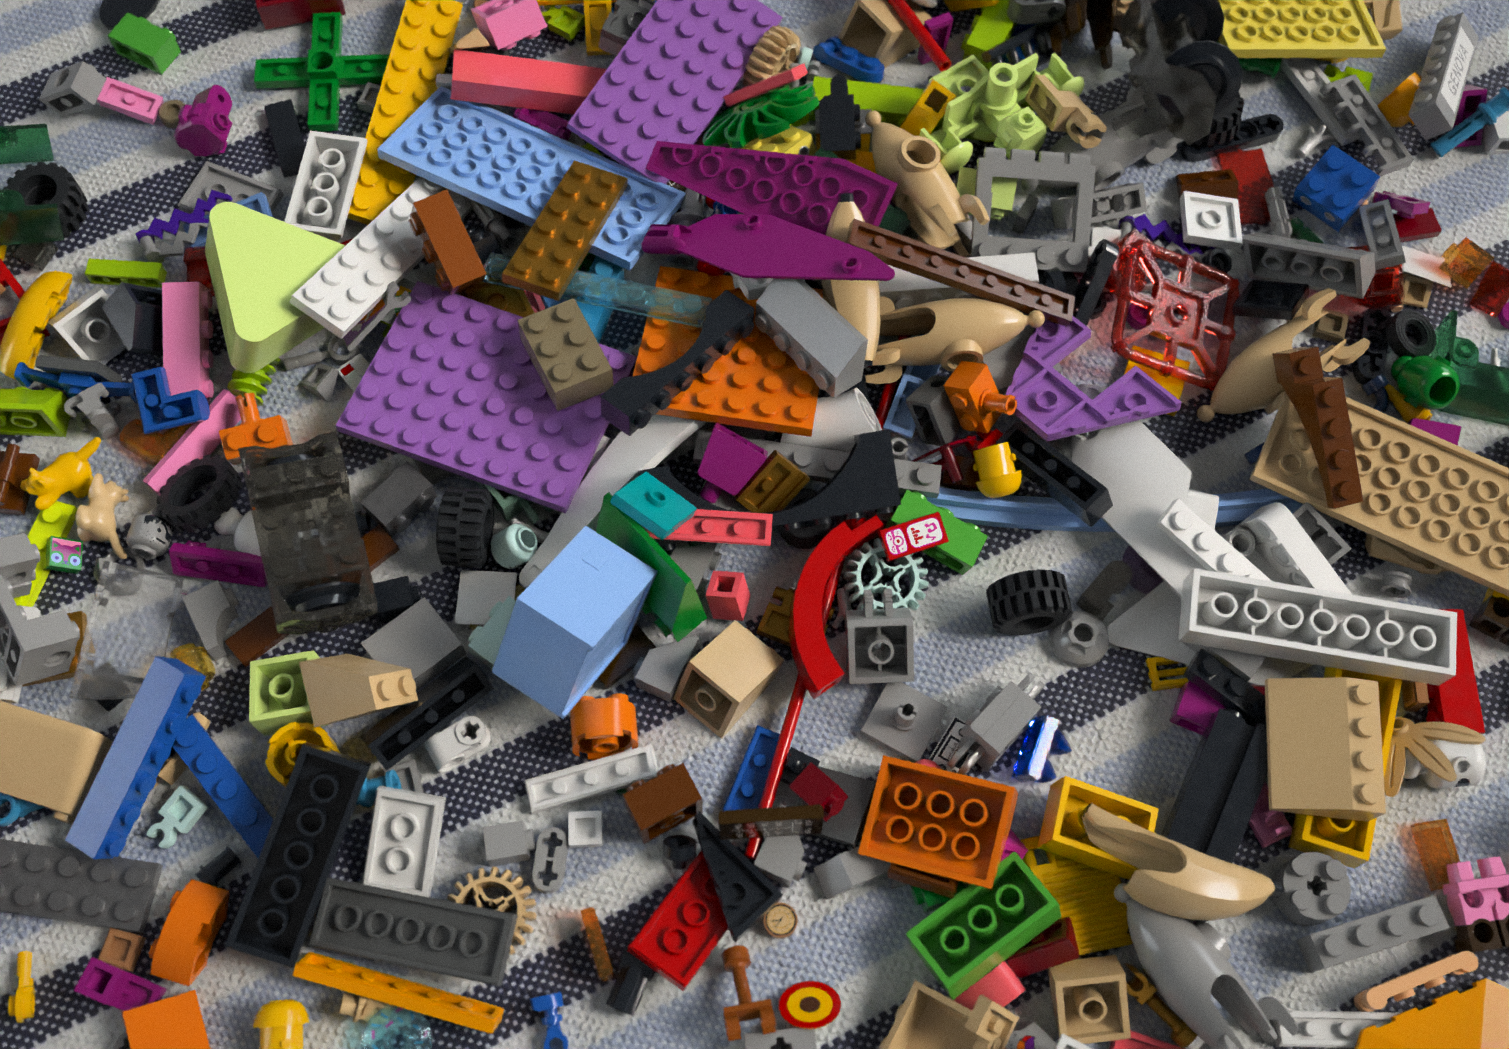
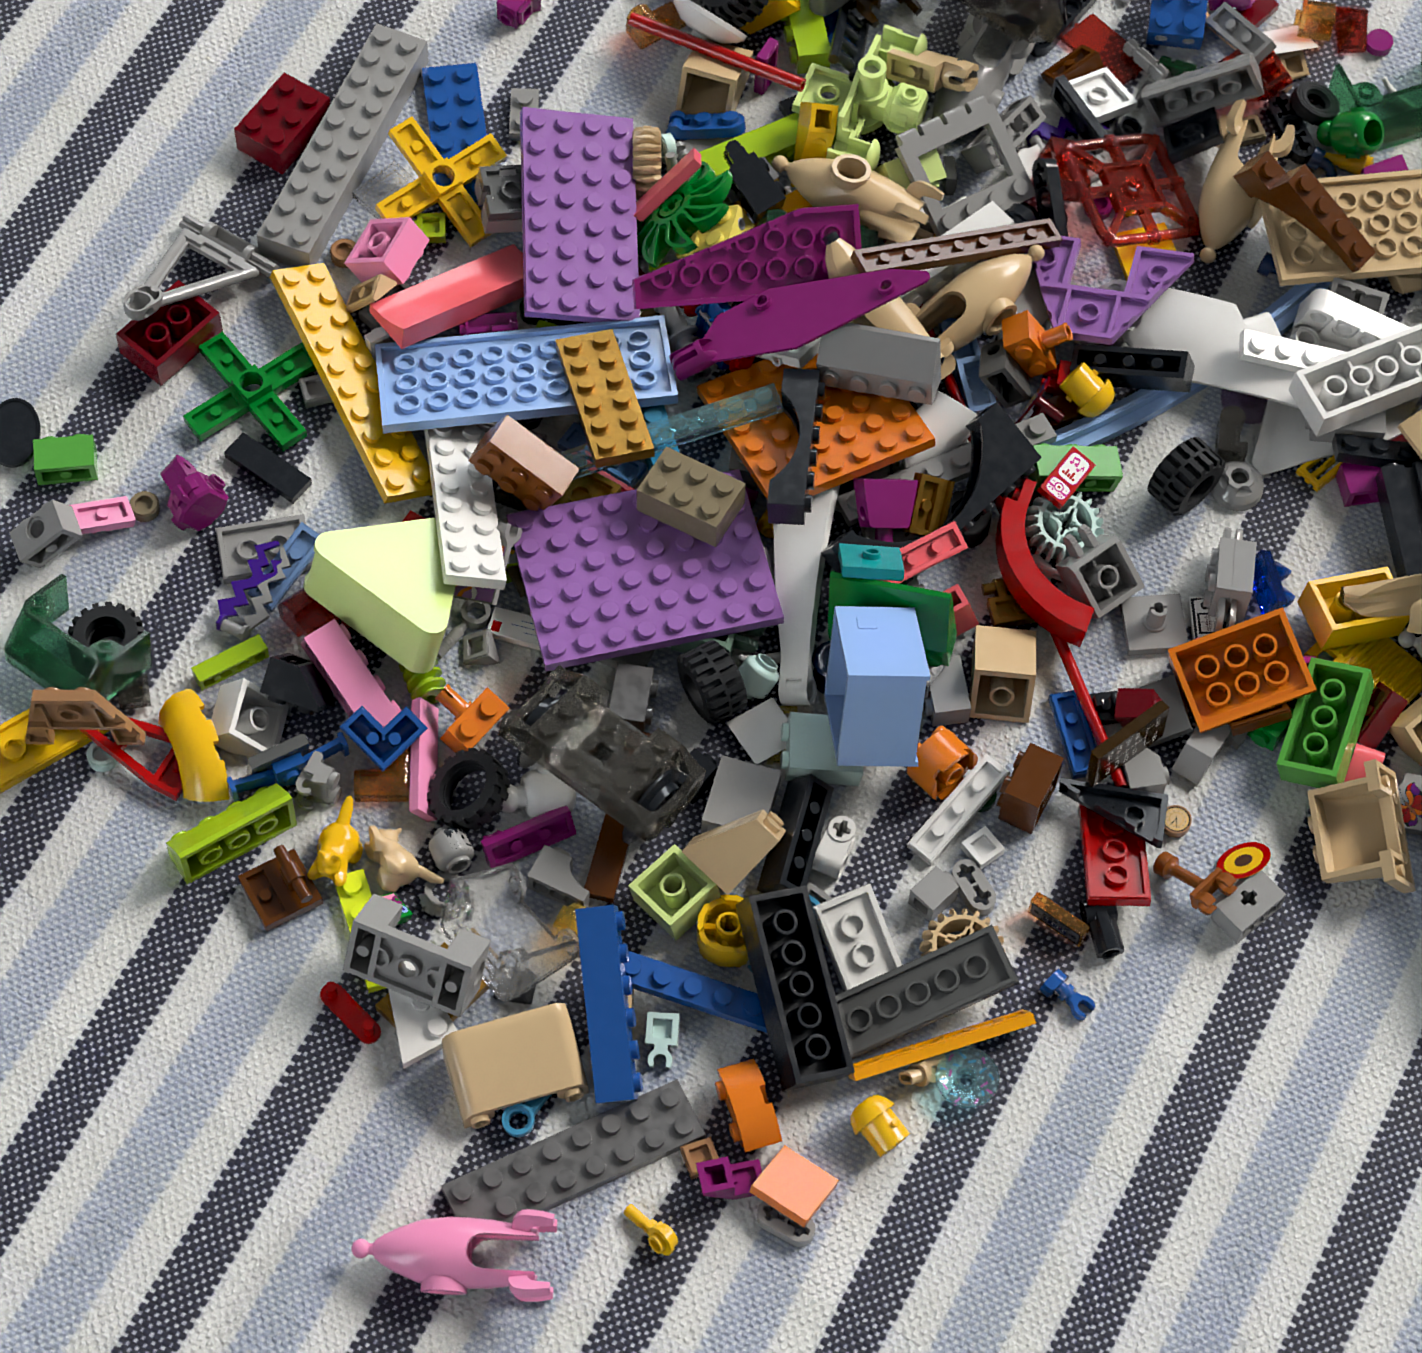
camera: 35 degrees left, 5 degrees down
(218, 867) = (726, 1050): black pin -> none
(326, 183) = (352, 480): white slope -> none
(679, 850) = (1064, 817): black tile -> none
(1179, 220) = (1076, 111): none -> black tile

